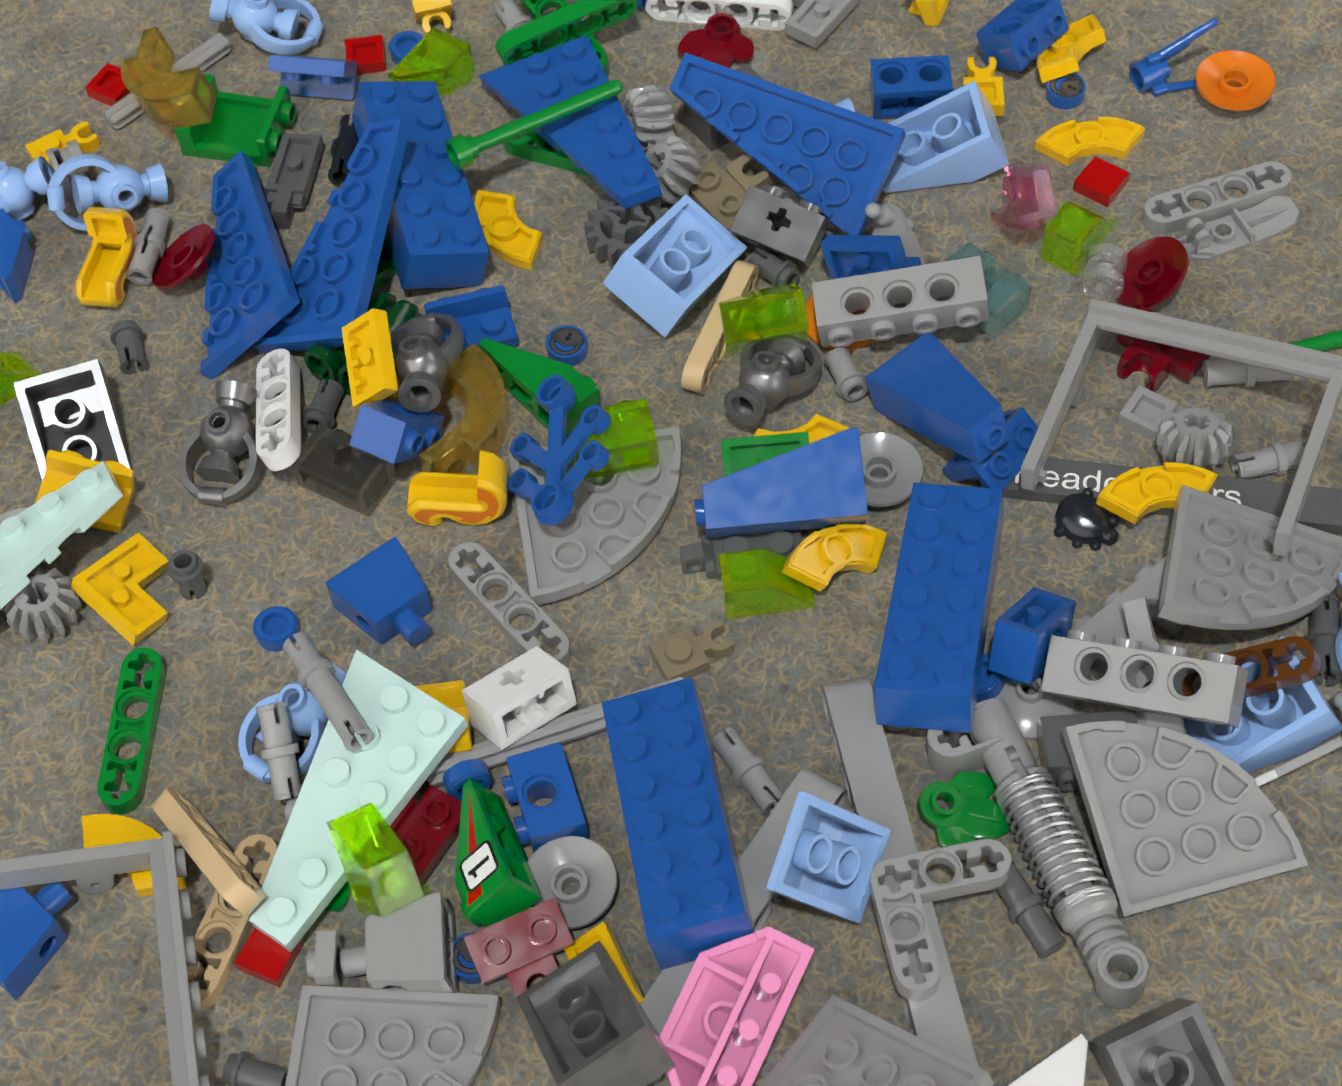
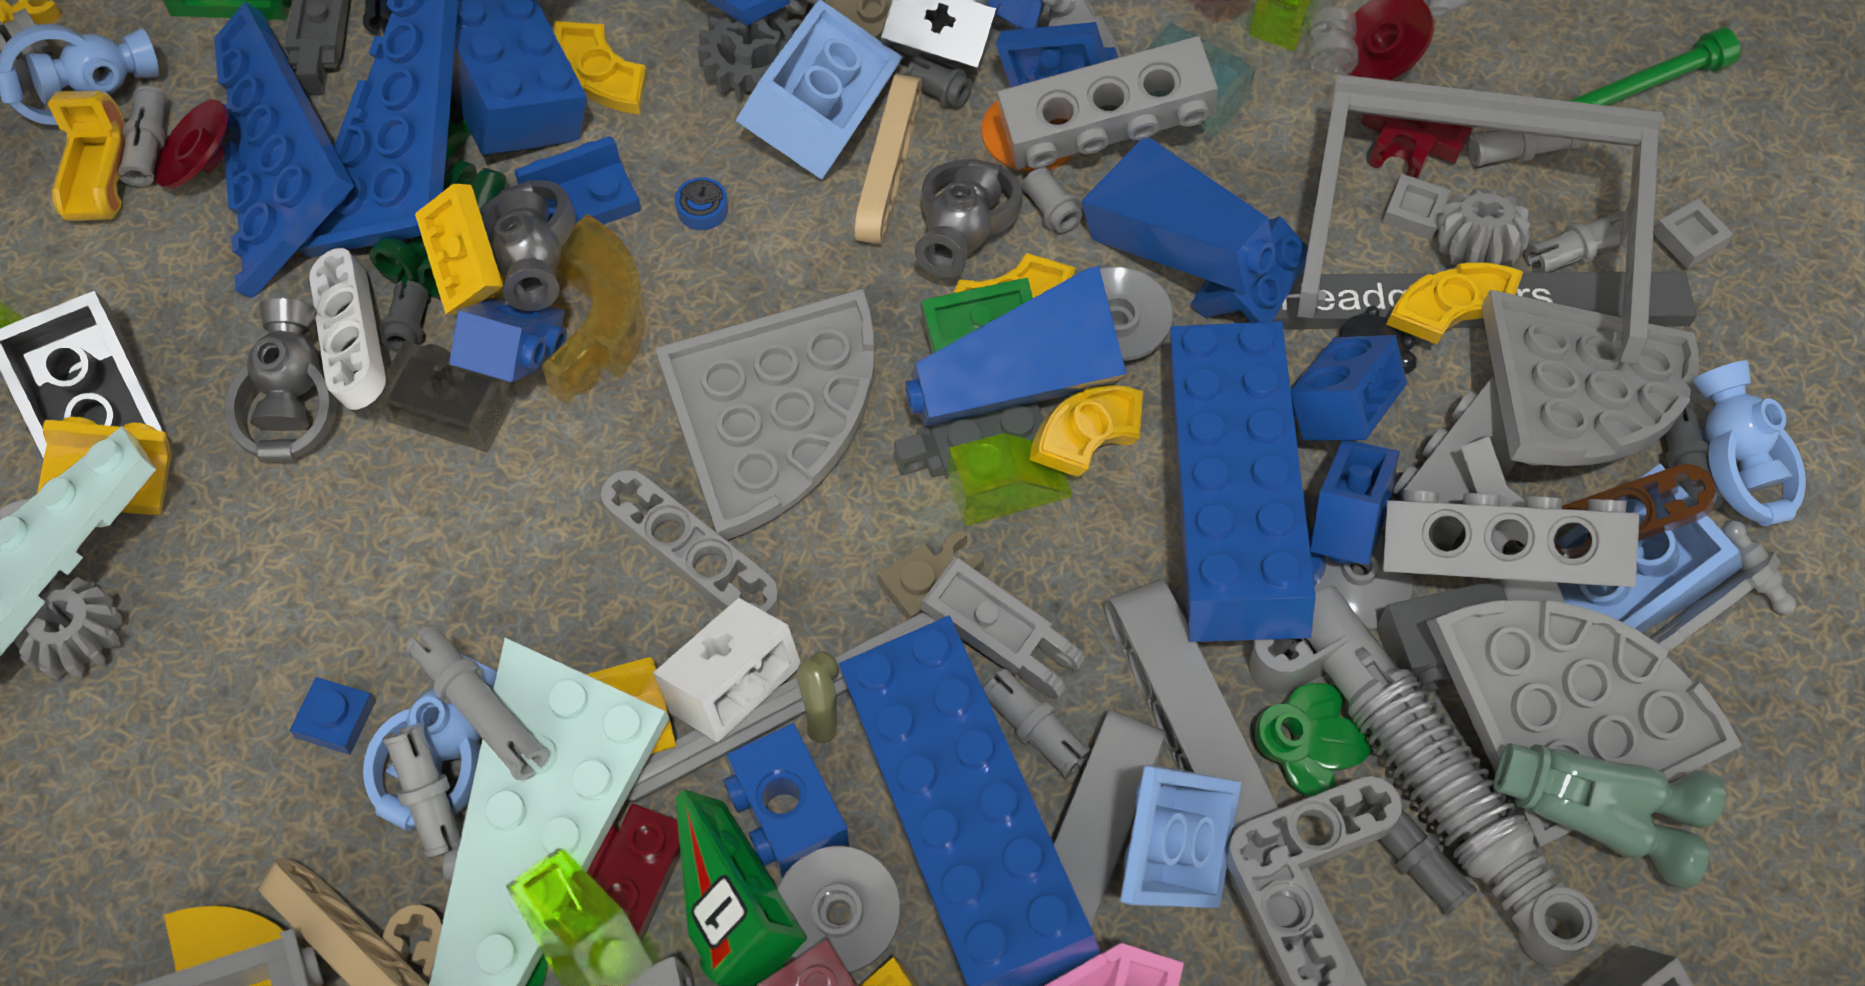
camera: 15 degrees left, 5 degrees up
(115, 588) = (165, 595): yellow plate -> none
(128, 338) = (133, 259): dark grey pin -> none
(131, 730) = (205, 784): green beam -> none
(186, 569) = (258, 557): dark grey pin -> none
(223, 694) = (332, 715): none -> blue plate
(274, 627) = (390, 616): blue tile -> none
(383, 595) = (525, 555): blue torso -> none
(458, 496) = (602, 412): yellow animal -> none
(461, 772) = (669, 784): blue tile -> none
(525, 371) = (687, 259): green slope -> none
(555, 498) = (729, 403): blue plant -> none
(584, 727) = (819, 695): none -> olive arm
(628, 439) = (792, 318): clear neon green slope -> none
(735, 695) = (1001, 626): none -> light grey hinge
(764, 314) = (943, 136): clear neon green slope -> none
(1048, 548) = (1349, 388): none -> blue brick
(1185, 889) = (1616, 805): none -> sand green piece

